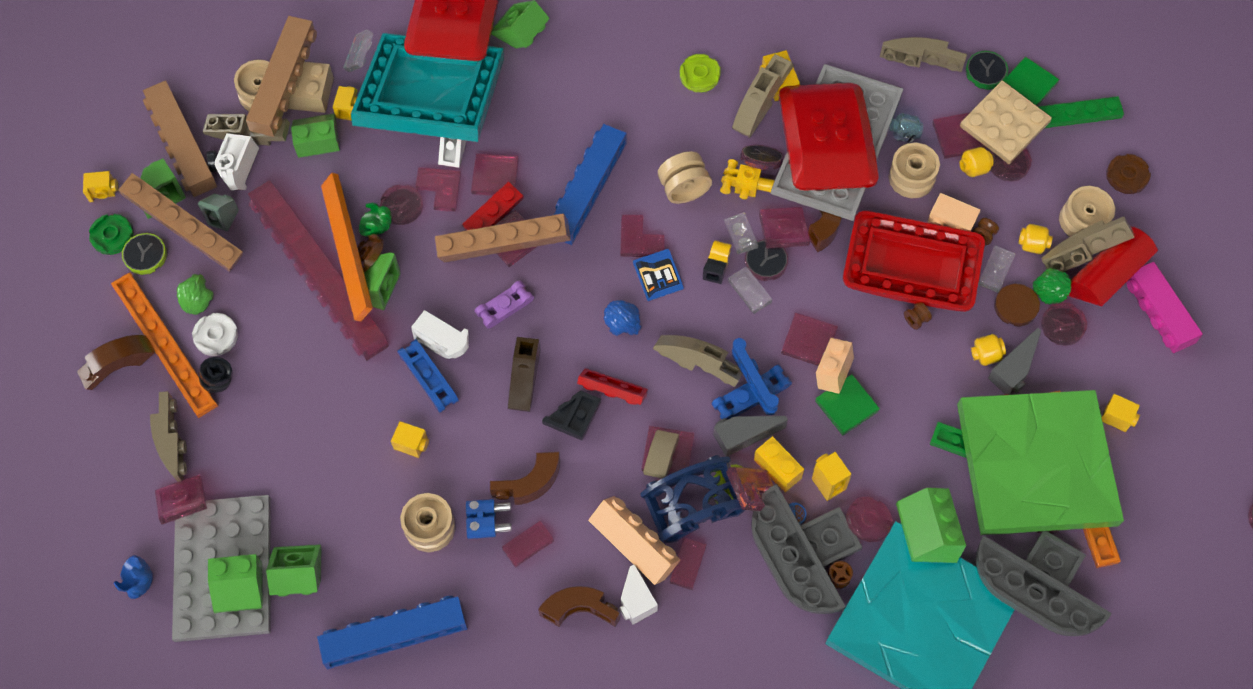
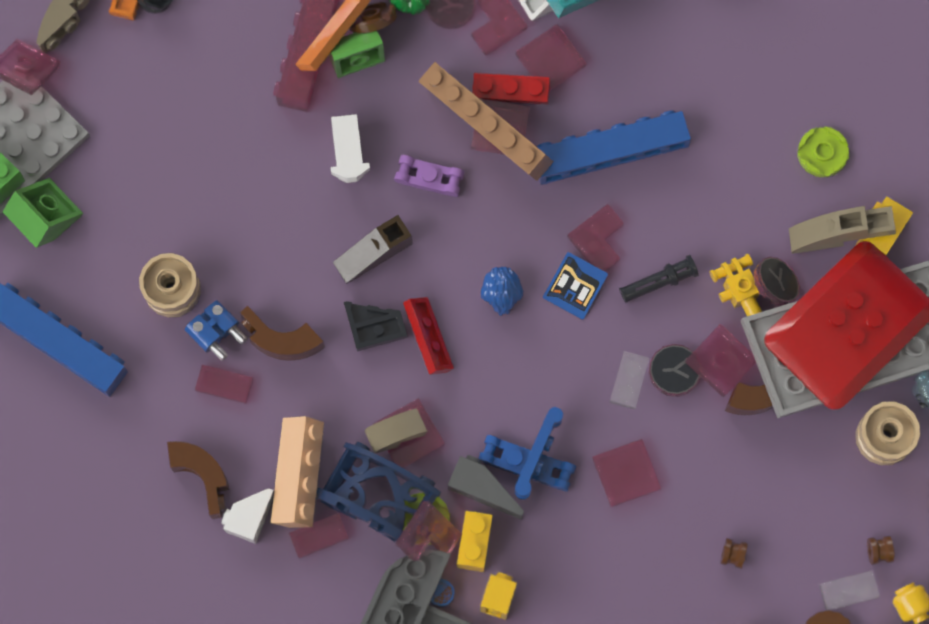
camera: 50 degrees right, 10 degrees up
(409, 439) = (233, 205): yellow brick -> none
(427, 375) = (305, 168): blue plate -> none
(684, 177) = (689, 229): tan wheel -> none
(693, 352) = (522, 385): dark tan slope -> none
(702, 215) = (670, 271): none -> black pin
(717, 262) = (633, 328): leg -> none
(741, 233) = (679, 326): clear plate -> none
(835, 365) = (613, 516): light nougat piece -> none
(849, 407) = (589, 557): green tile -> none
(914, 261) = (786, 507): red wedge -> none
(953, 213) = (869, 508): light nougat piece -> none

